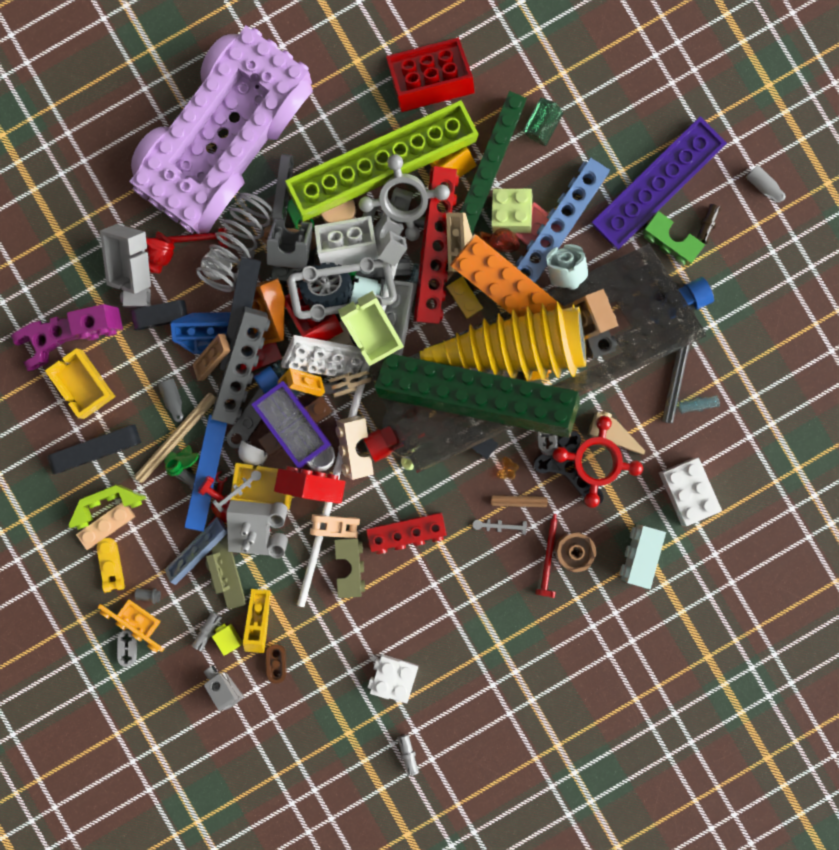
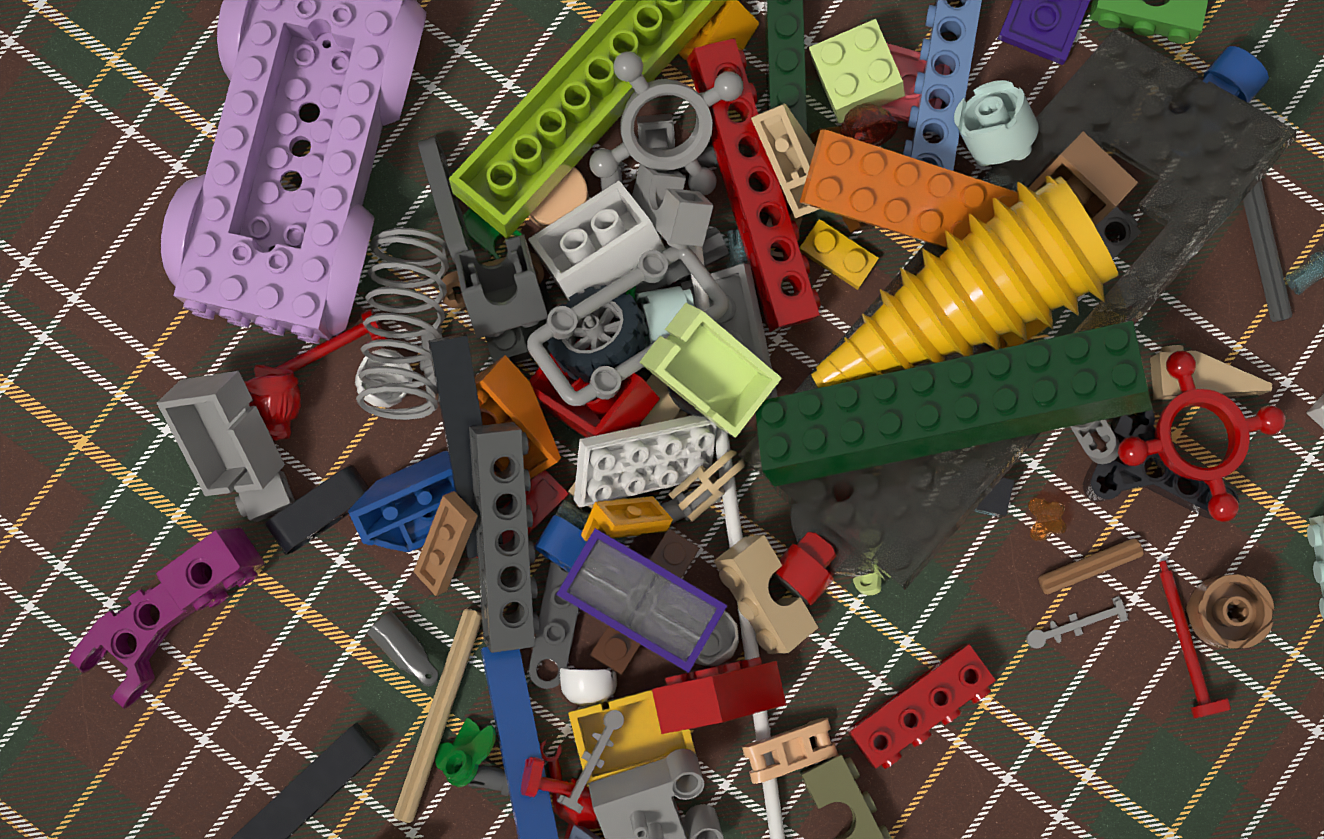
camera: 25 degrees left, 5 degrees down
(80, 383) = (229, 690): yellow piece -> none

